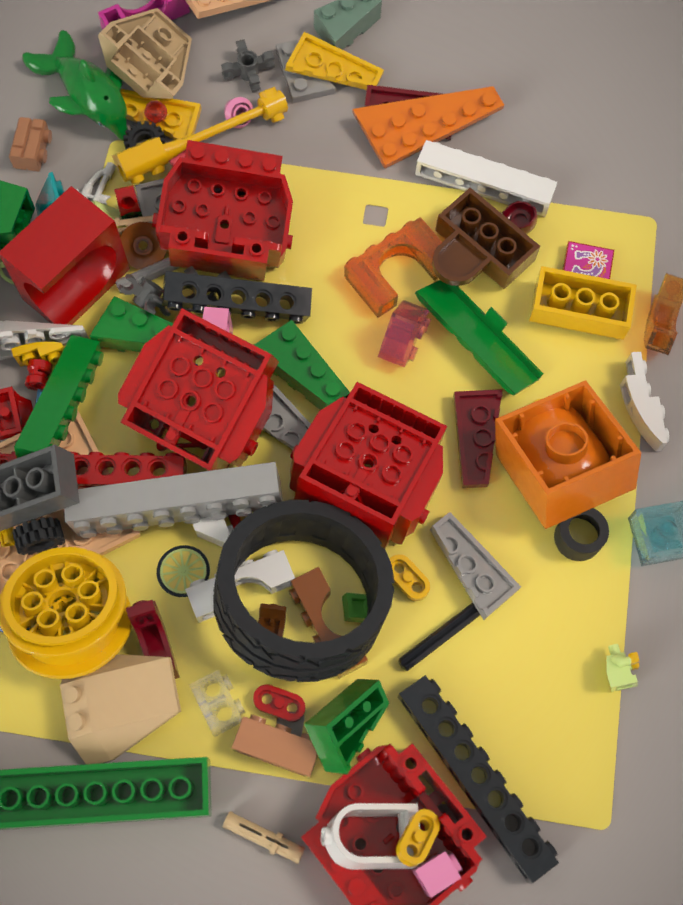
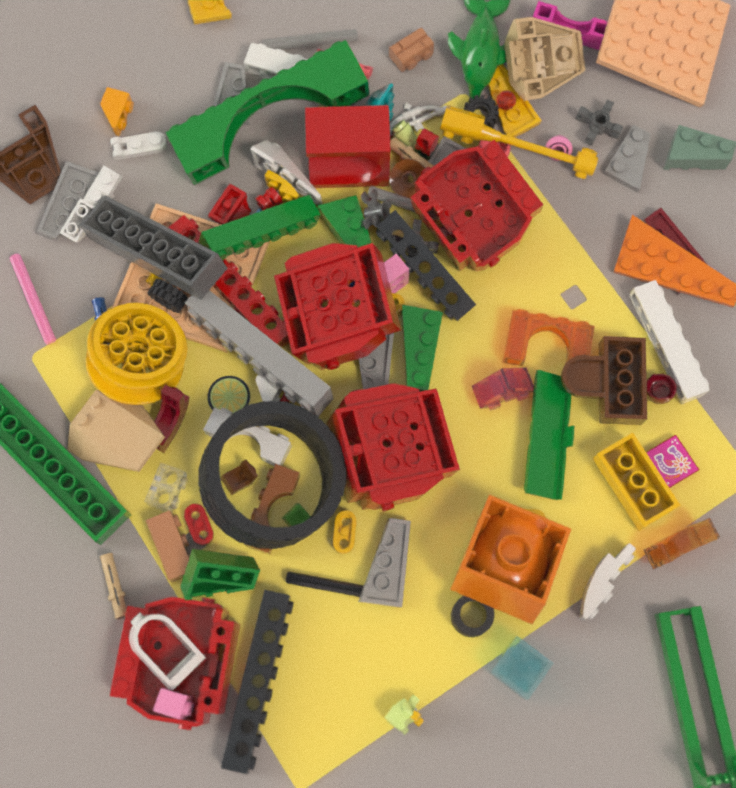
camera: 50 degrees right, 5 degrees up
(326, 62) = (653, 171): yellow wing -> none
(416, 839) = (181, 674): yellow plate -> none
(476, 433) = (491, 479): dark red wing -> none

